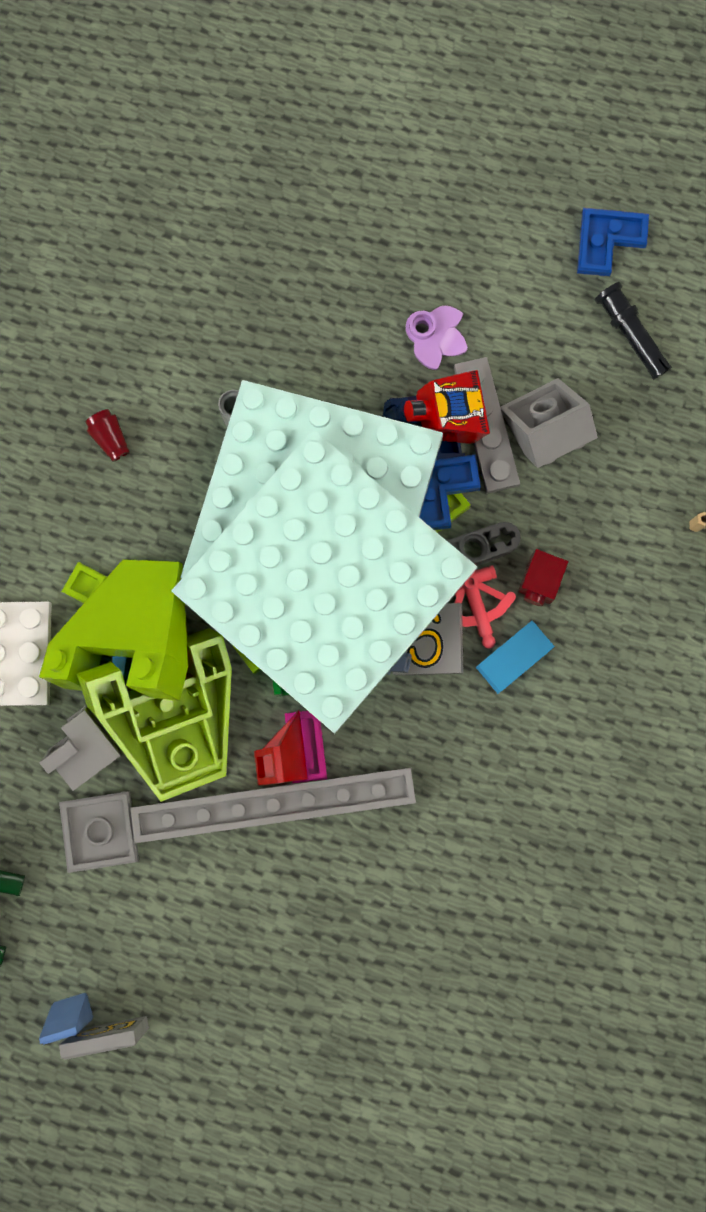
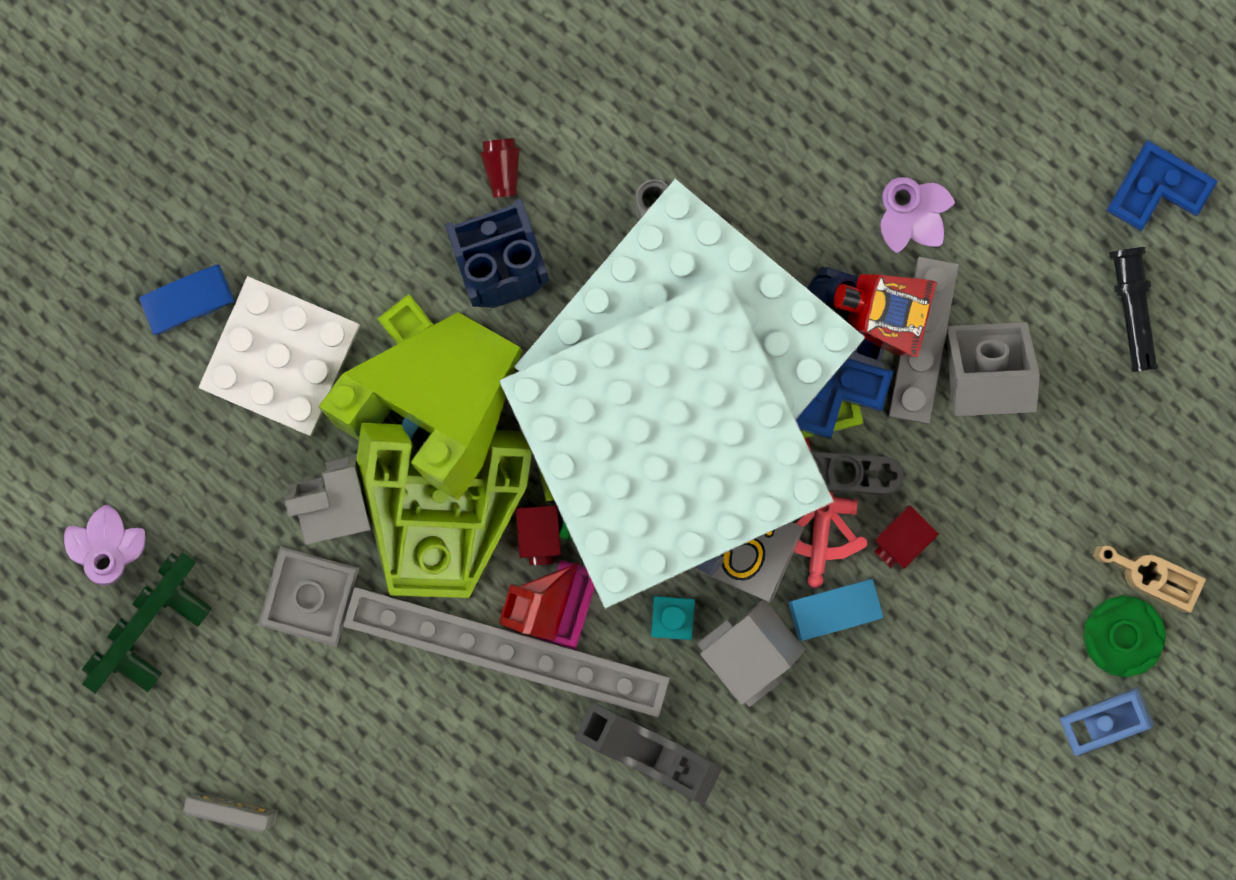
camera: 20 degrees right, 5 degrees up
(66, 1018) = (198, 774): medium blue slope -> none
(135, 503) = (498, 247): none -> dark blue slope
(258, 701) = (538, 534): none -> dark red brick
(392, 720) = (672, 618): none -> teal plate
(421, 834) = (648, 752): none -> dark grey arch
(466, 719) = (751, 652): none -> light grey plate

